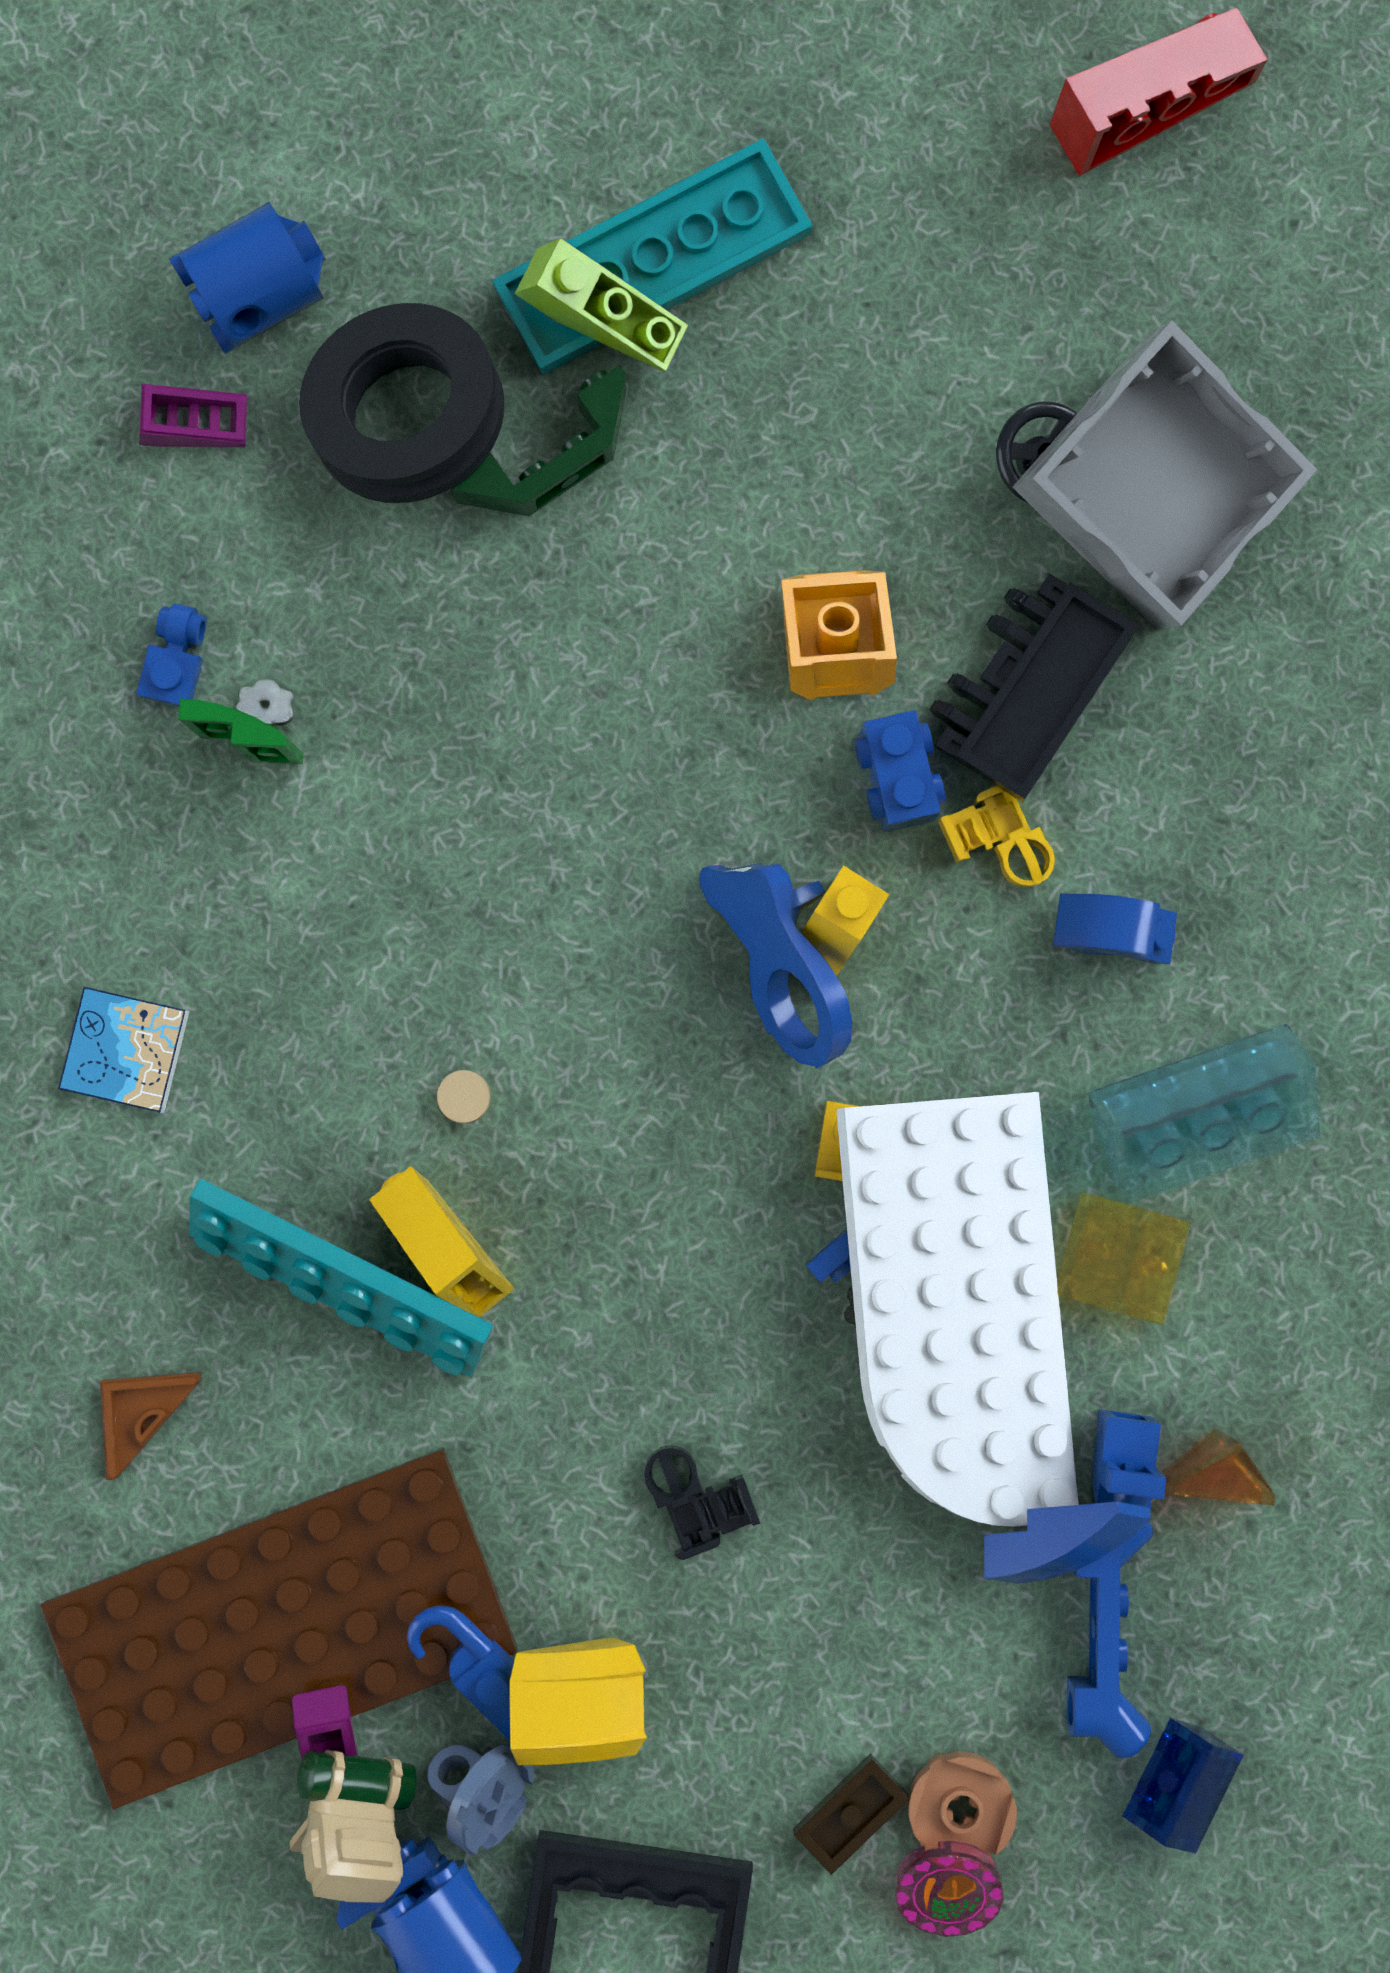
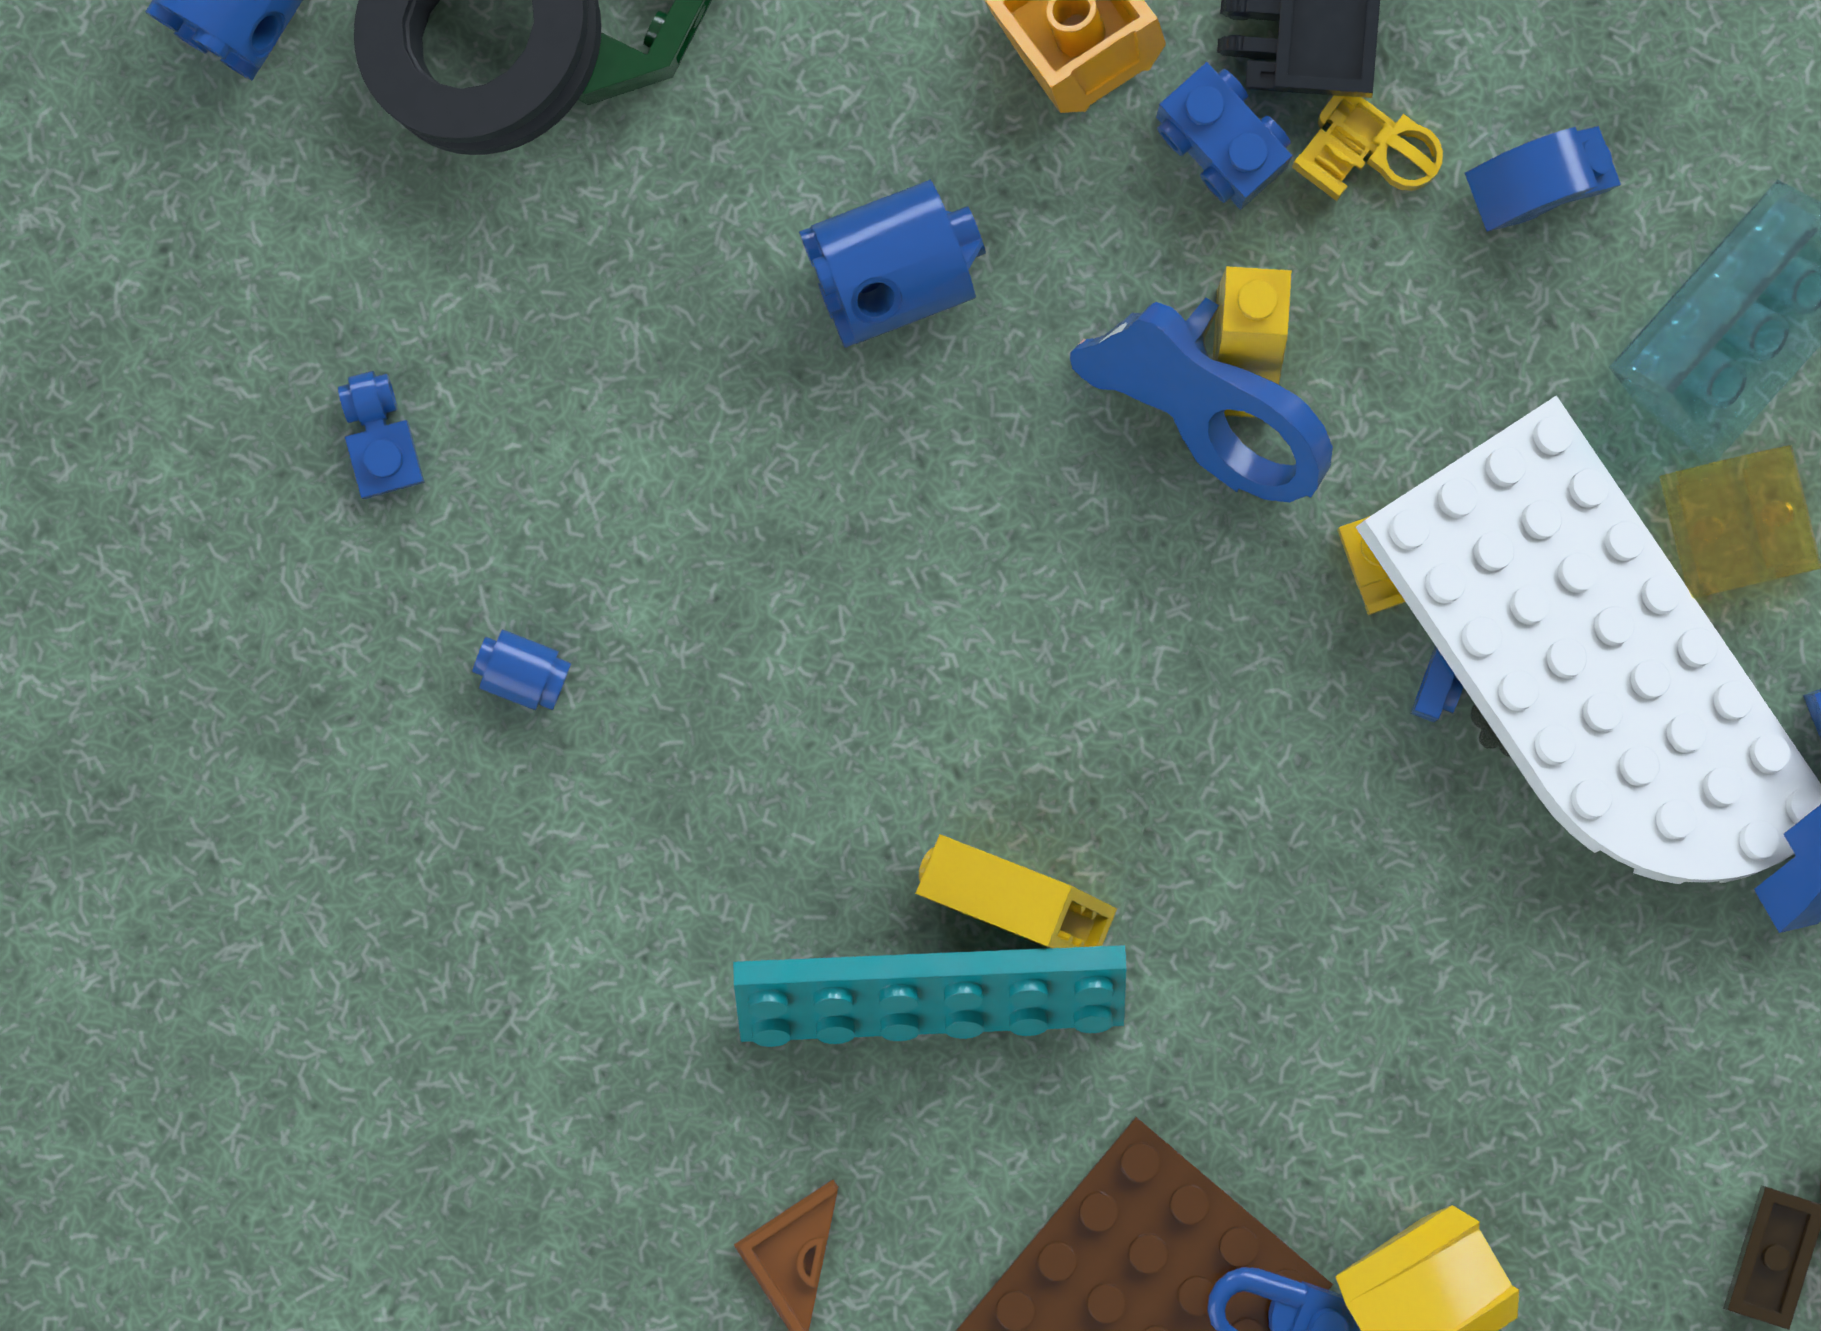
camera: 25 degrees left, 0 degrees up
(123, 1050) = (560, 883): tile -> none
(179, 881) = (521, 670): none -> blue brick
(191, 436) = (262, 188): magenta slope -> none
(247, 733) = (524, 469): green slope -> none
(267, 702) = (505, 434): clear smoke plant -> none
(464, 1096) = (951, 734): tan tile -> none
(607, 731) = (893, 261): none -> blue cylinder
(700, 1515) = (1445, 1037): black piece -> none

